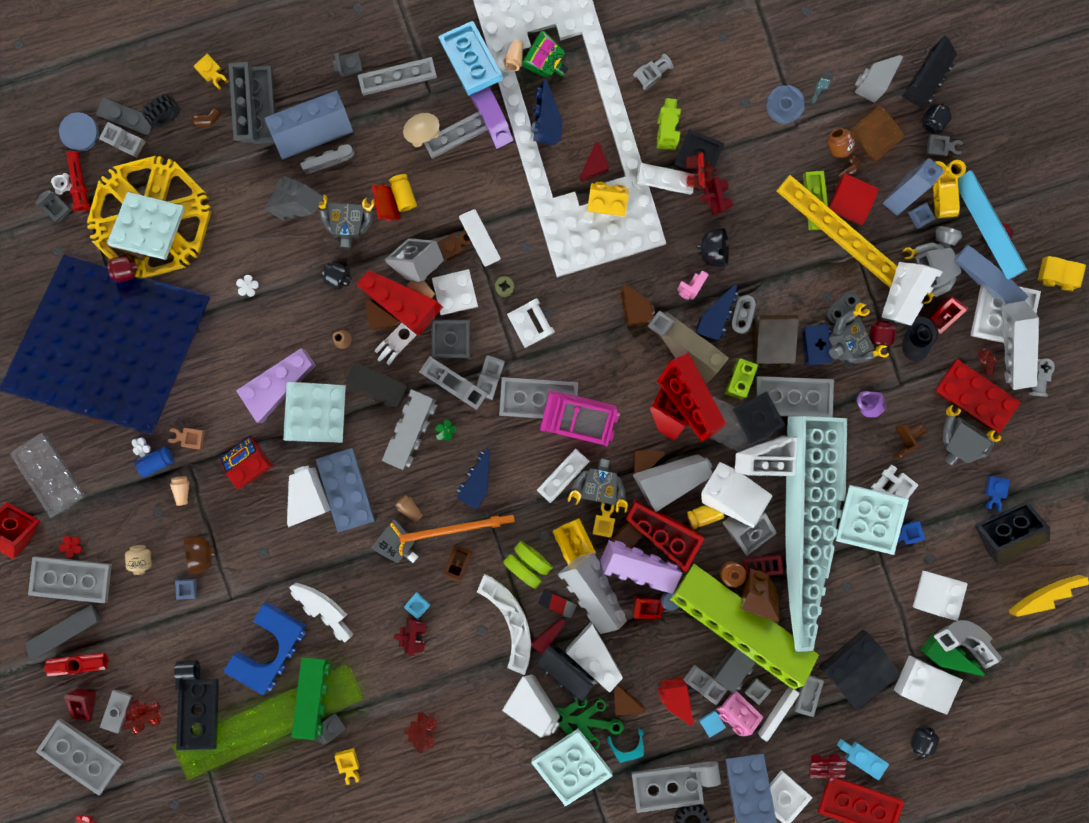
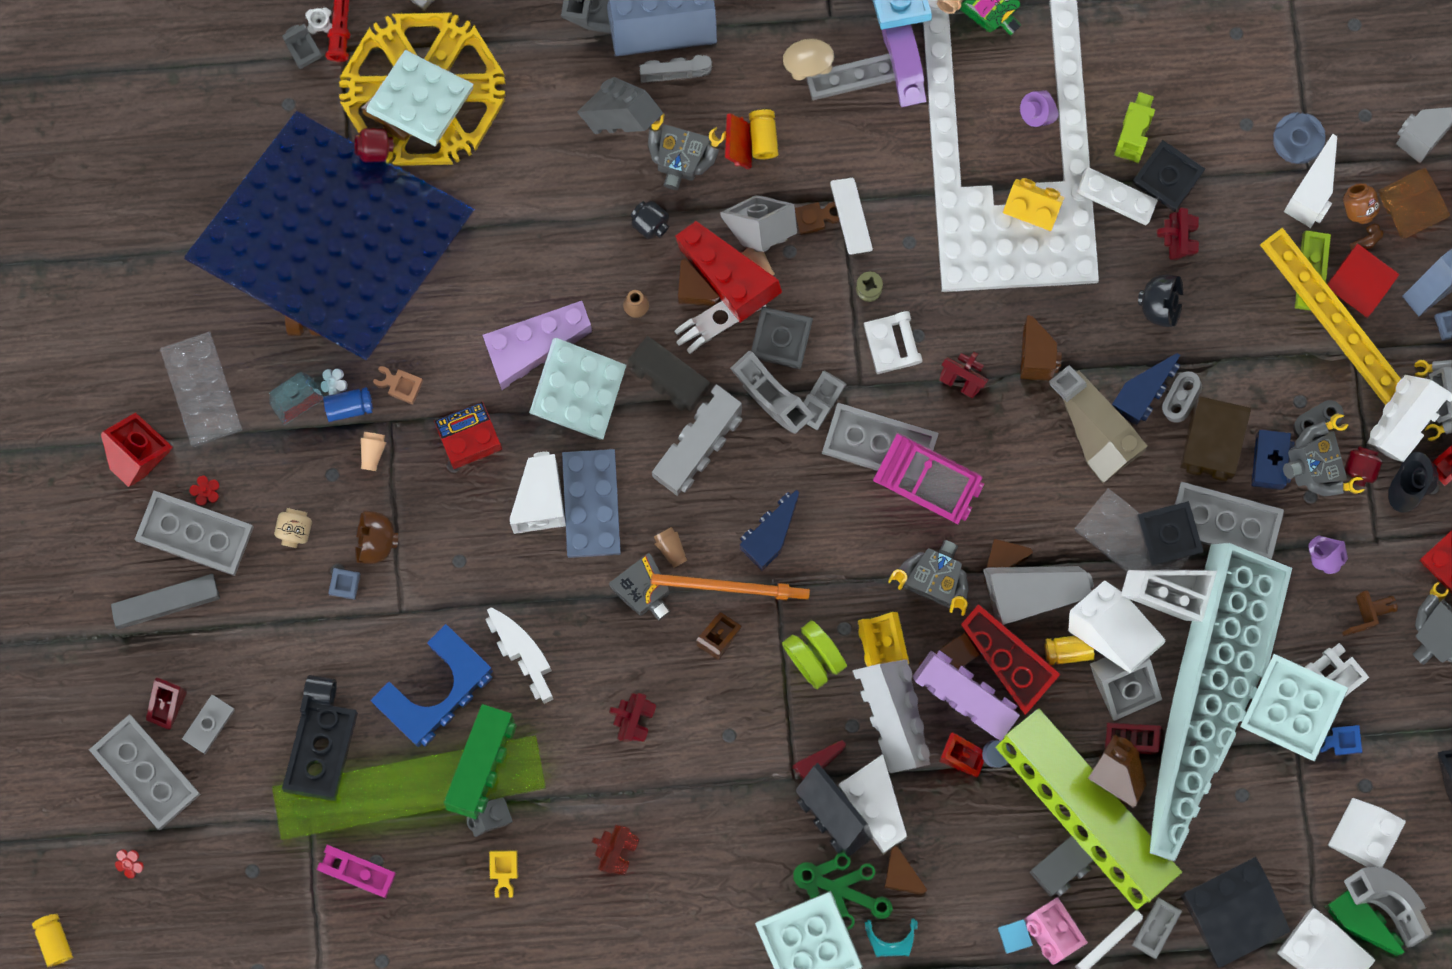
camera: 20 degrees right, 10 degrees down
(86, 662) = (190, 647): red piece -> none
(113, 466) = (295, 397): none -> clear light blue torso
(140, 713) = (255, 736): clear red hips -> none
(246, 790) = (357, 872): none -> dark pink plate
(247, 285) = (527, 207): white plant -> none
(417, 605) = (649, 680): medium azure tile -> none
(445, 430) = (744, 455): green plant -> none
(455, 292) = (802, 279): white plate -> none
(515, 619) = (778, 729): white tile -> none
(532, 707) = (774, 845): white slope -> none
(548, 120) = (978, 85): dark blue slope -> none
(557, 604) = (840, 724): sticker -> none
(563, 475) = (888, 553): white tile -> none
(593, 336) = (953, 369): none -> dark red hips
(595, 127) = (1038, 109): none -> medium lavender piece
(595, 165) = (1027, 157): dark red slope -> none
(604, 524) = (929, 629): yellow plate -> none
(652, 72) = (1129, 56): light grey connector -> none
(666, 416) = (1053, 501): red slope -> none
(676, 698) = (973, 884): red slope -> none
(691, 290) = (1119, 348): bright pink bracket -> none
(691, 397) = (1085, 483): red wedge -> none
(698, 180) = (1158, 207): clear red hips -> none
(705, 684) = (1017, 881): light grey slope -> none
(732, 574) = (1088, 736): dark orange head -> none
(741, 379) = (1157, 479): lime hips -> none
(757, 691) = (1087, 907): light grey tile -> none
(808, 137) = (1312, 196): none -> white slope
(821, 84) = (1354, 123): clear light blue hand -> none

